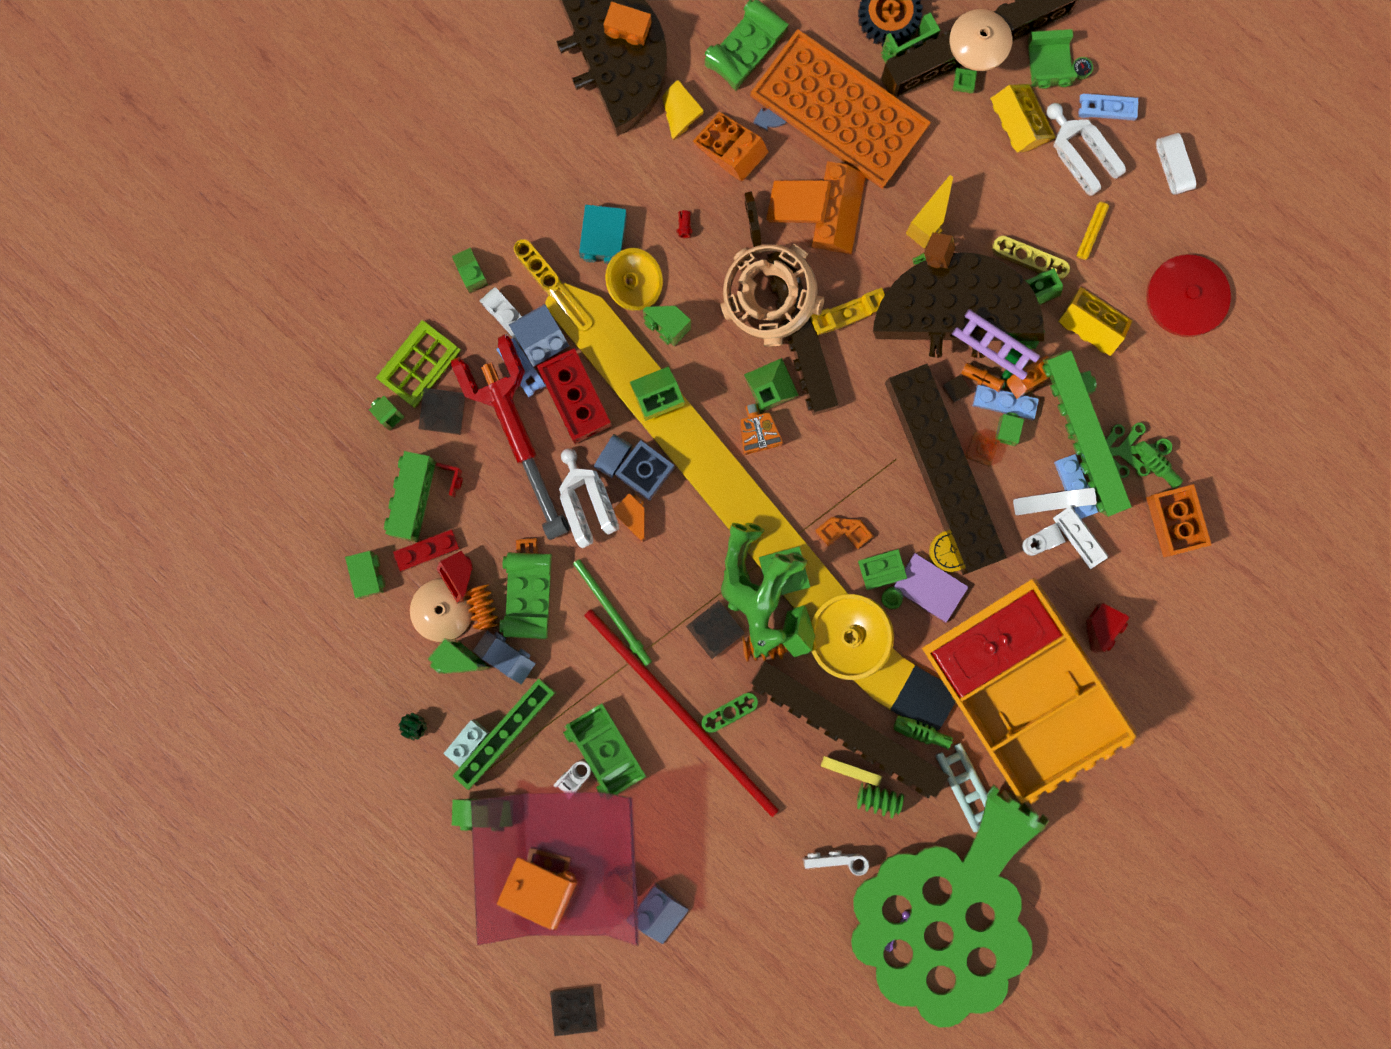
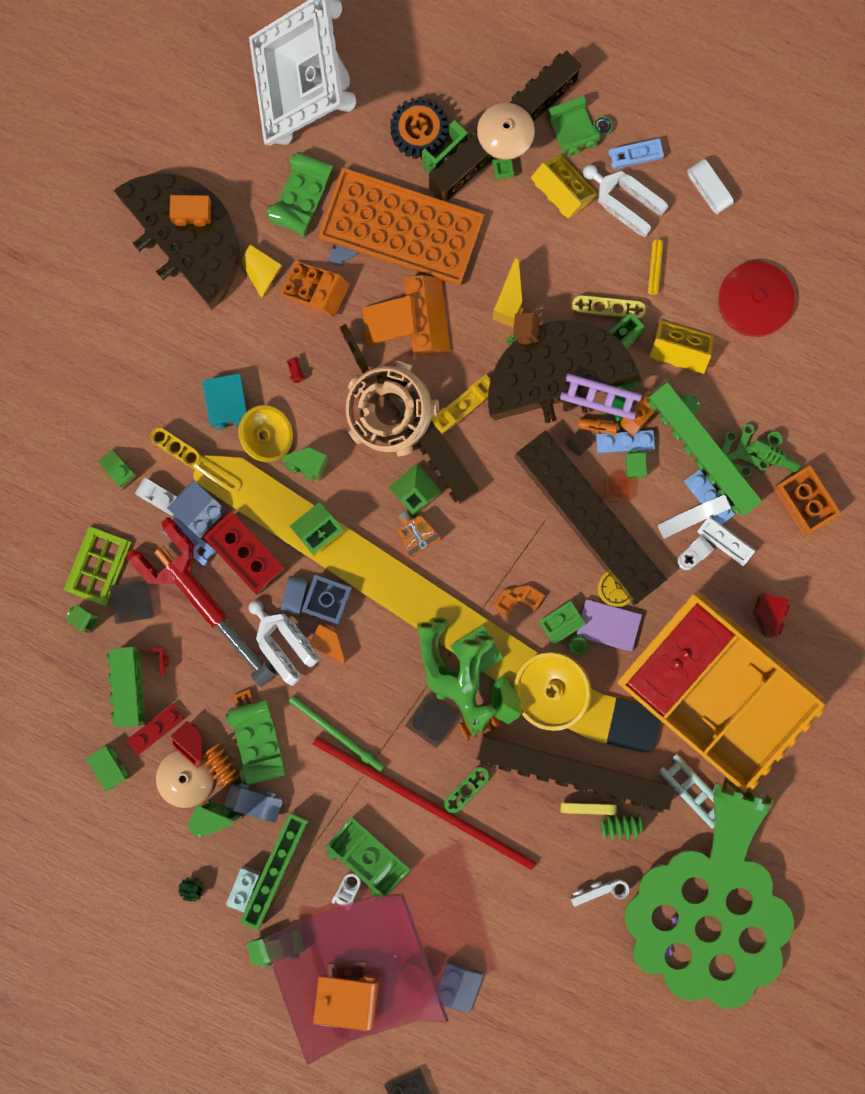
camera: 15 degrees left, 0 degrees up
(911, 729) = (630, 755): bright green hinge -> none

